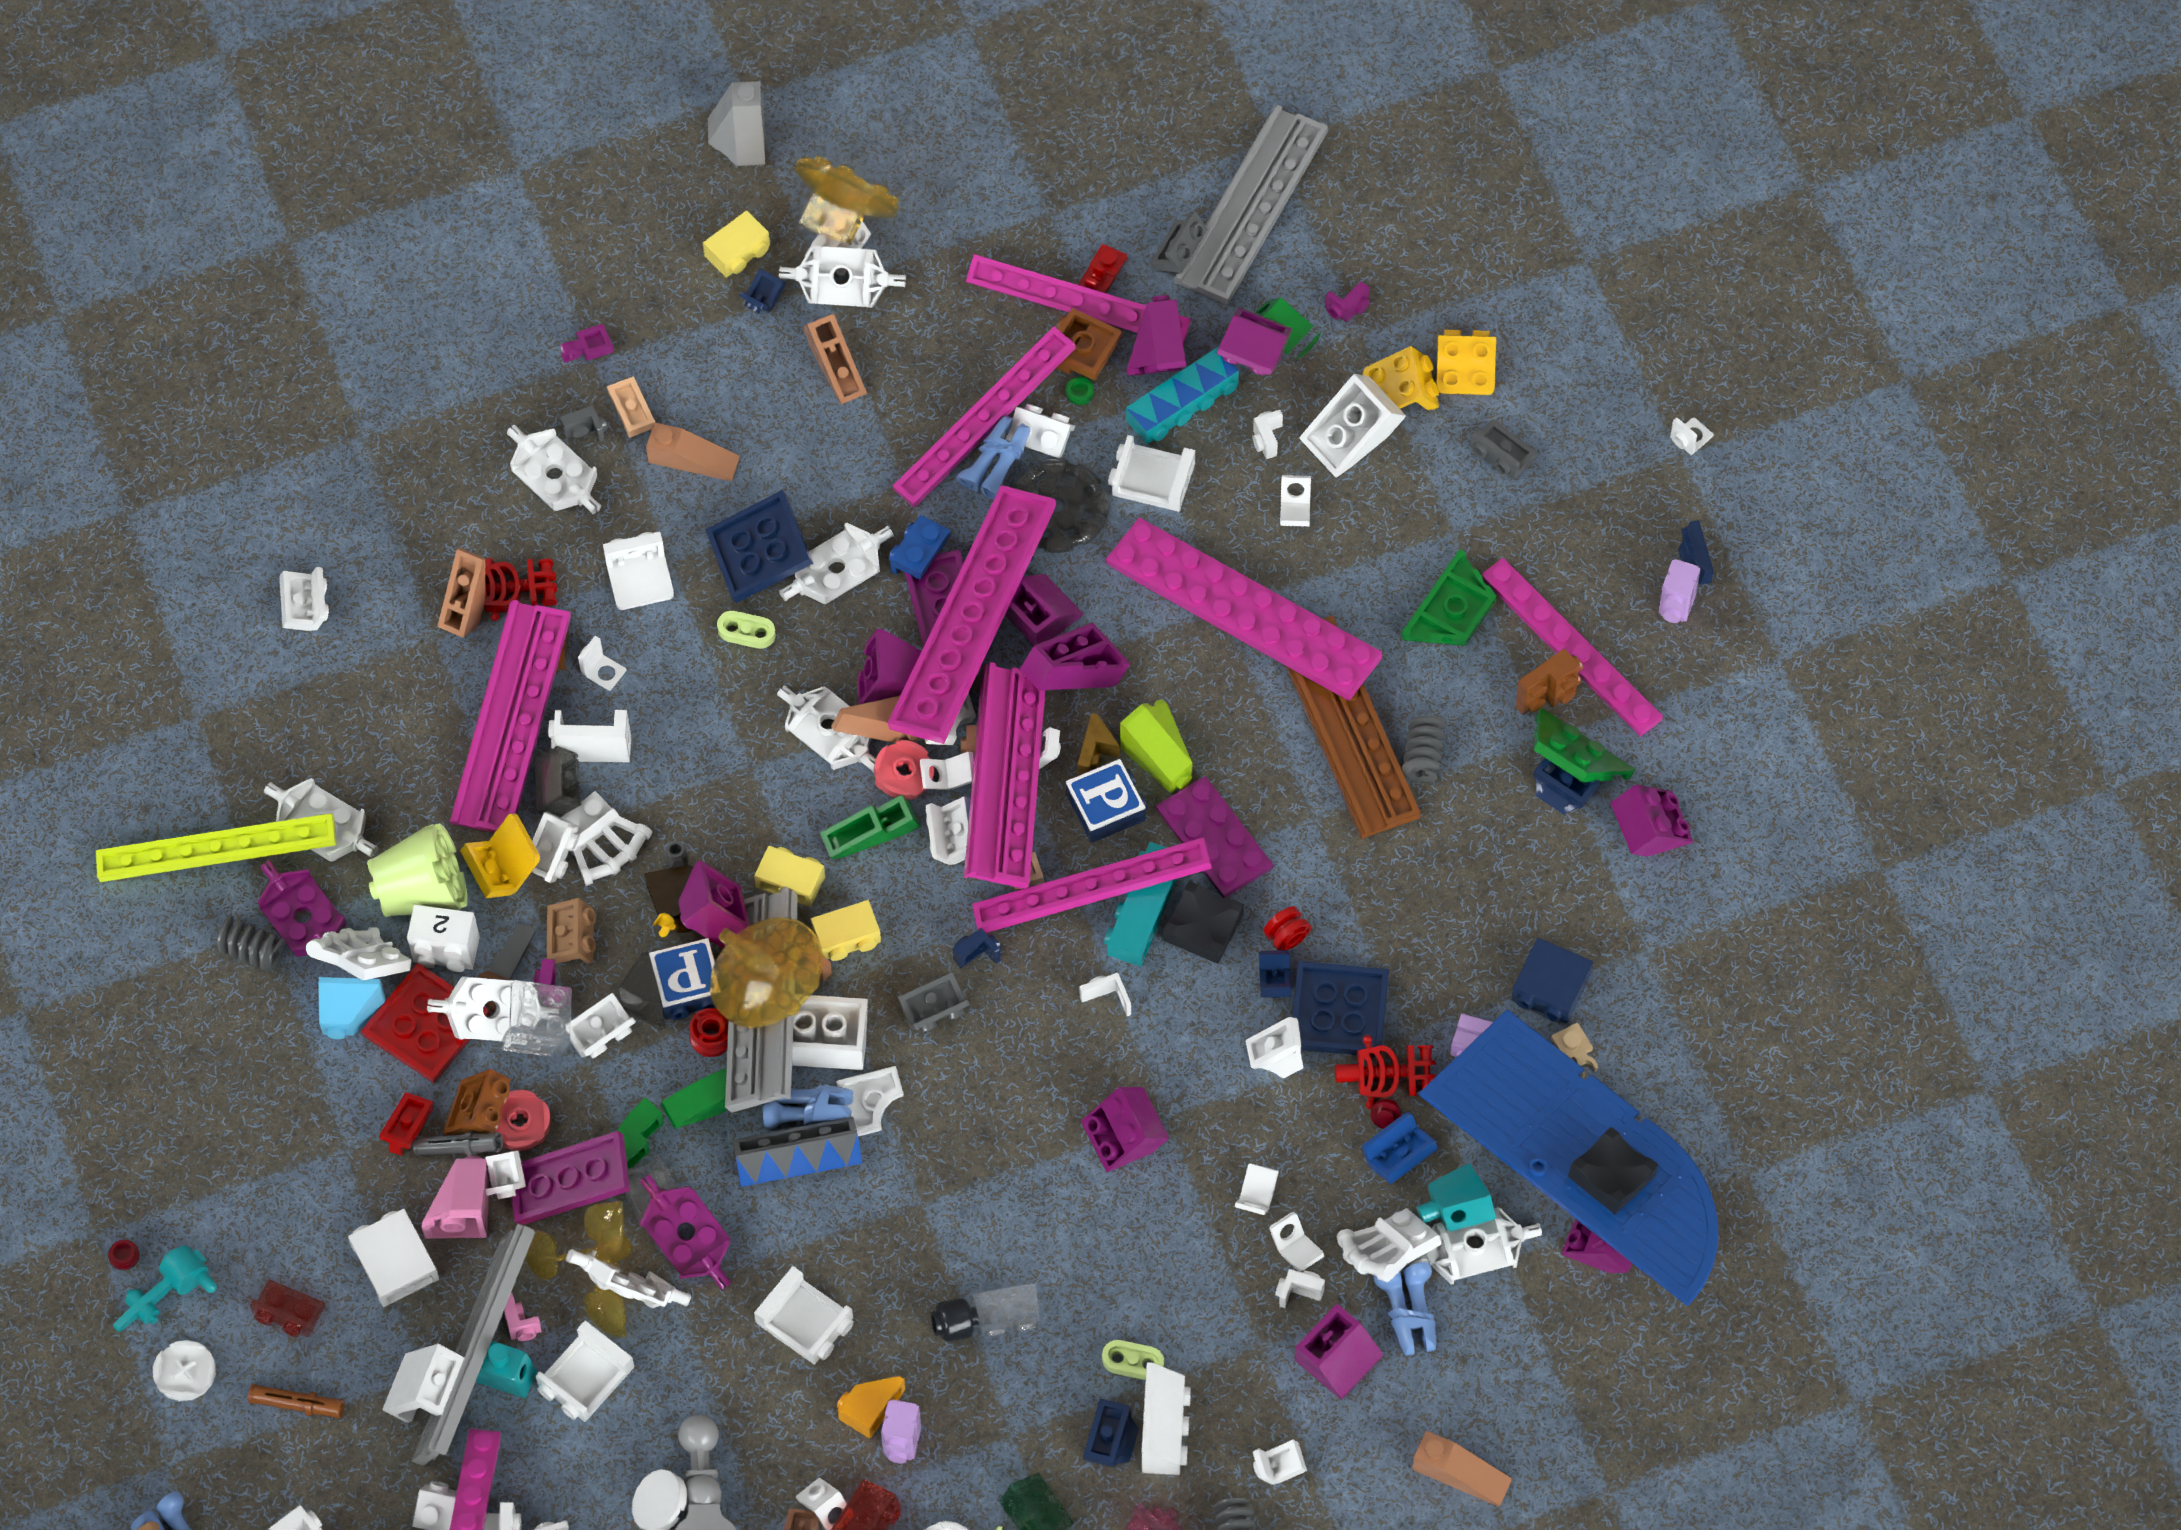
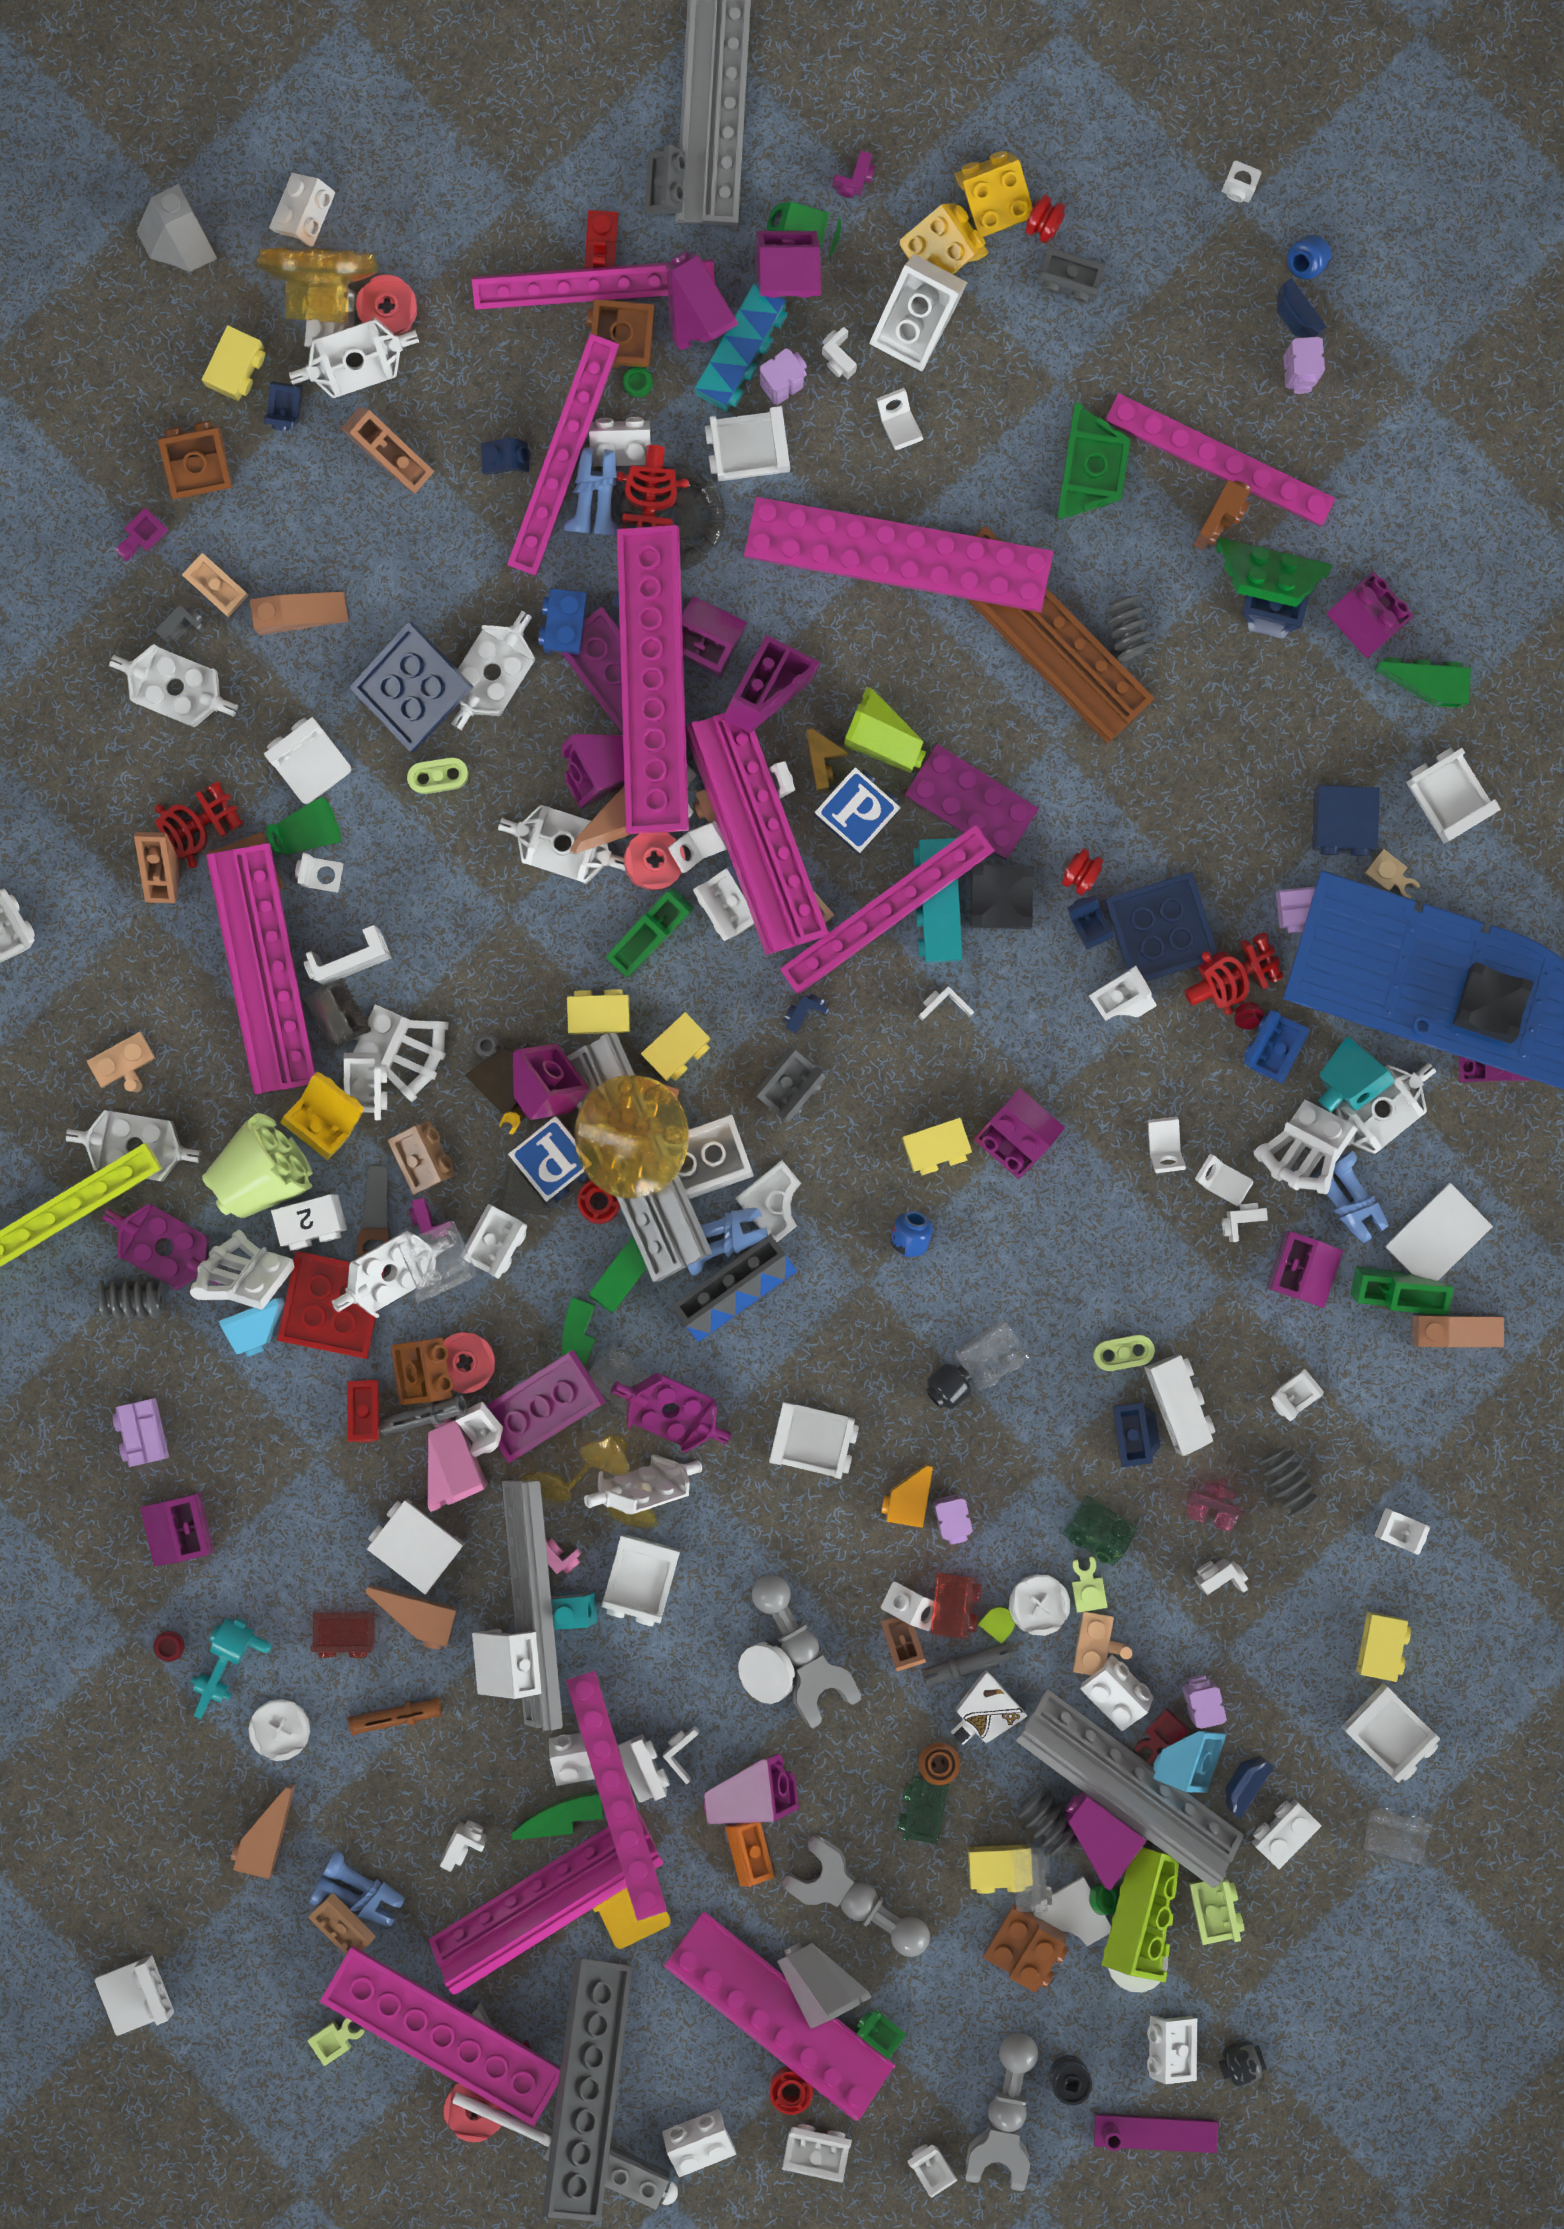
camera: 30 degrees left, 25 degrees up
(121, 1454) = (261, 1844): none -> nougat slope
(187, 1153) = (177, 1529): none -> magenta slope
(198, 1059) = (140, 1432): none -> lavender brick
(347, 751) = (121, 1062): none -> light nougat plate
(369, 1324) = (421, 1617): none -> nougat slope
(614, 627) = (305, 829): none -> green piece
(665, 304) = (194, 460): none -> dark orange plate
(859, 150) = (302, 208): none -> white bracket
(904, 242) = (400, 295): none -> coral plate
(934, 402) = (505, 456): none -> dark blue bracket
(983, 1172) = (911, 1234): none -> blue head
(1043, 1108) = (936, 1146): none -> light yellow brick
(1052, 466) = (653, 476): none -> red torso
(1208, 426) = (782, 376): none -> lavender brick
(1421, 1409) = (1401, 1291): none -> green slope
(1480, 1380) = (1438, 1235): none -> white tile
(1500, 395) = (1045, 218): none -> red wheel
(1661, 1000) = (1451, 795): none -> white panel
(1685, 900) = (1432, 683): none -> green slope
(1723, 512) = (1309, 257): none -> blue head

